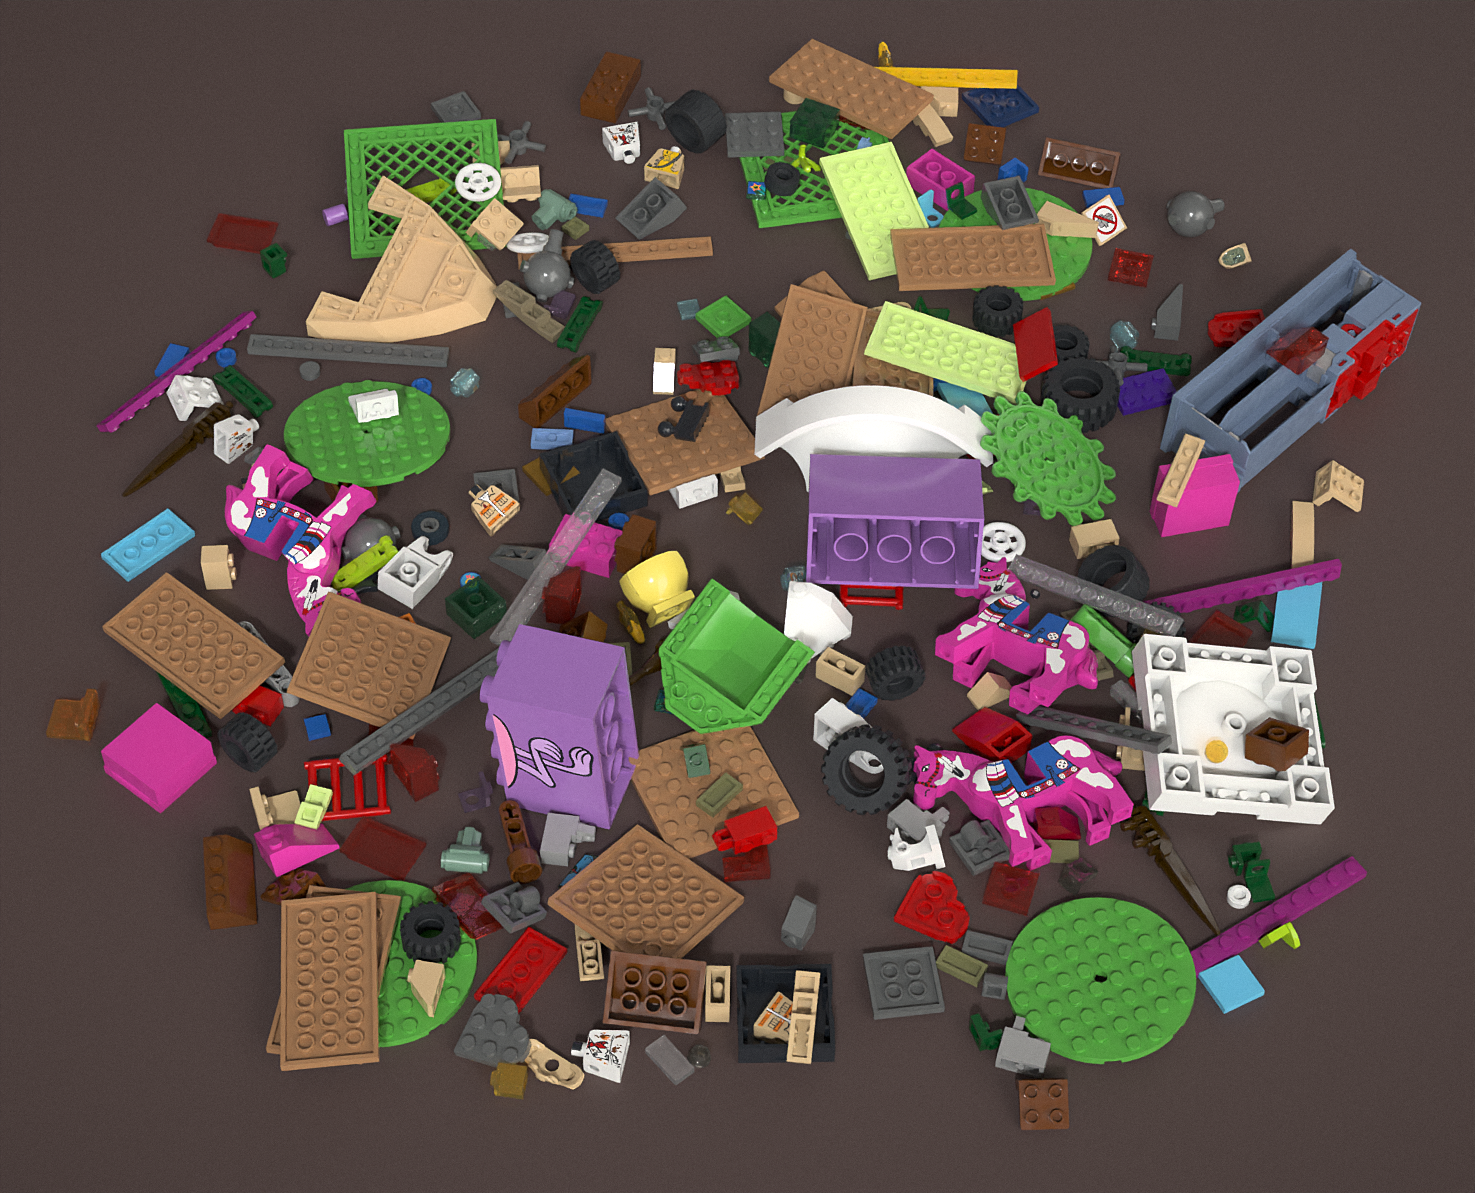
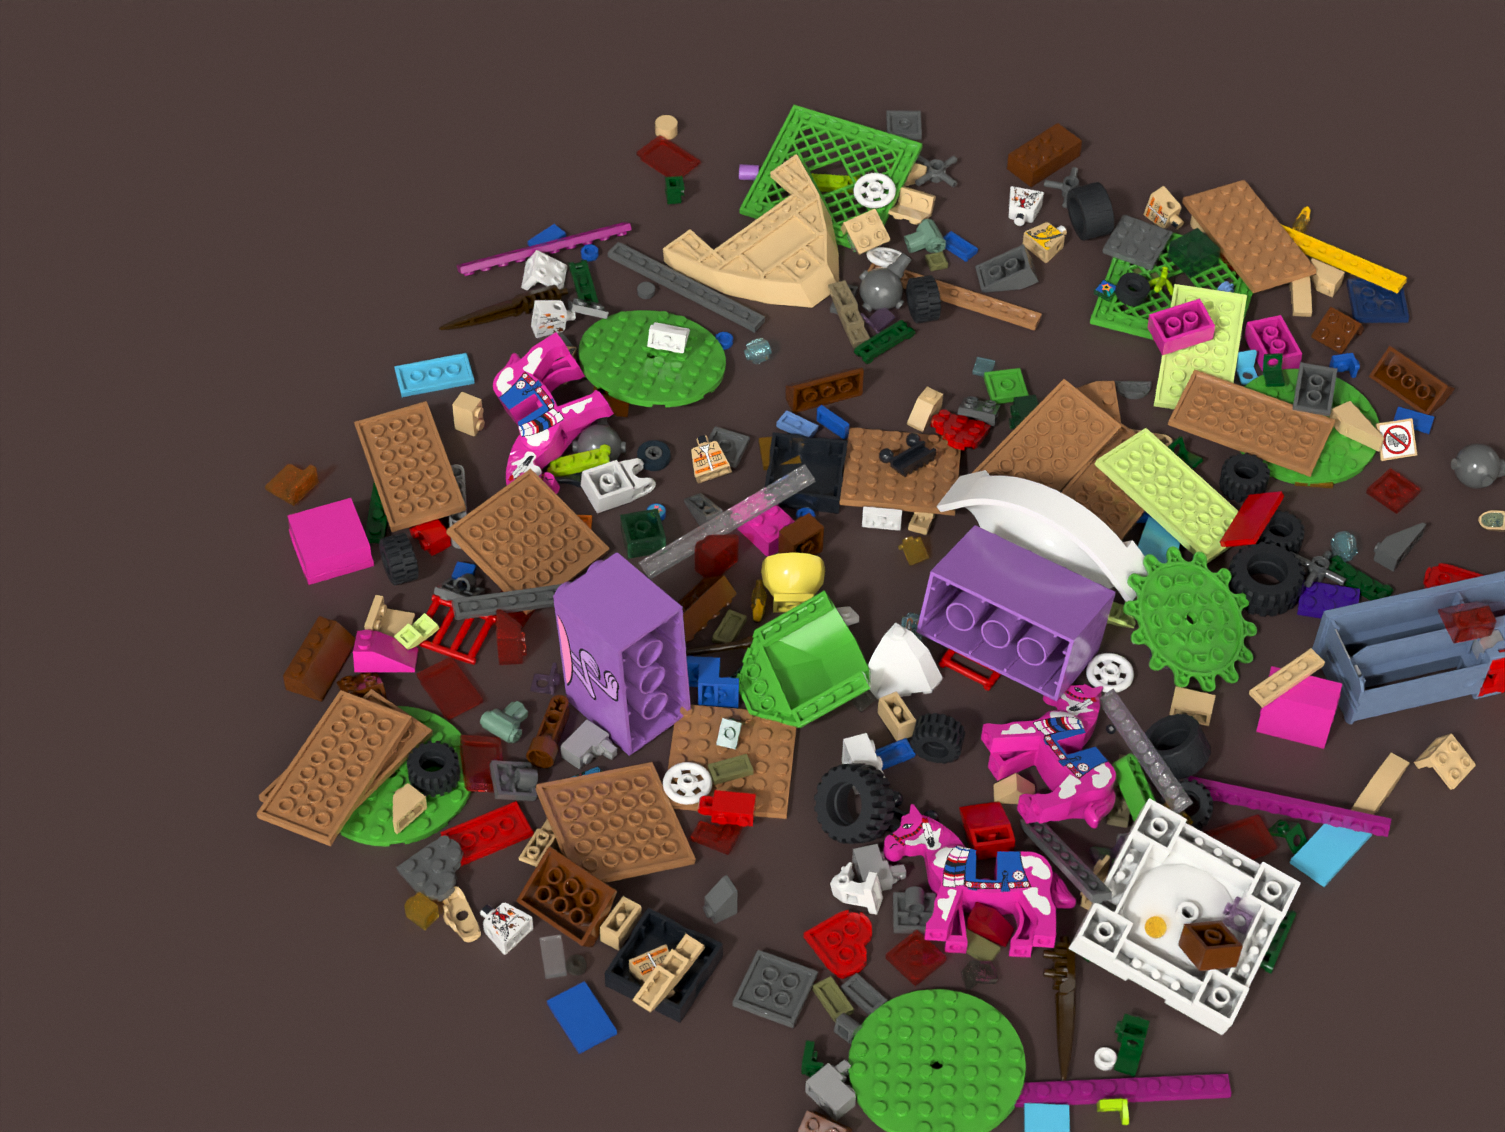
camera: 30 degrees right, 0 degrees up
(220, 202) = (666, 127): none -> tan piece
(270, 410) = (582, 307): none -> plate
(320, 749) = (454, 588): none -> dark grey plate
(654, 725) = (712, 689): none -> blue bracket
(687, 811) = (687, 788): none -> white plate
(738, 1104) = (581, 1017): none -> blue tile
(757, 94) = (1163, 209): none -> tan torso
(842, 272) = (1133, 389): none -> dark grey tile
(855, 194) = (1181, 326): none -> dark pink brick
(1112, 711) = (1099, 853): none -> bracket
(1271, 704) = (1231, 911): none -> clear purple bracket

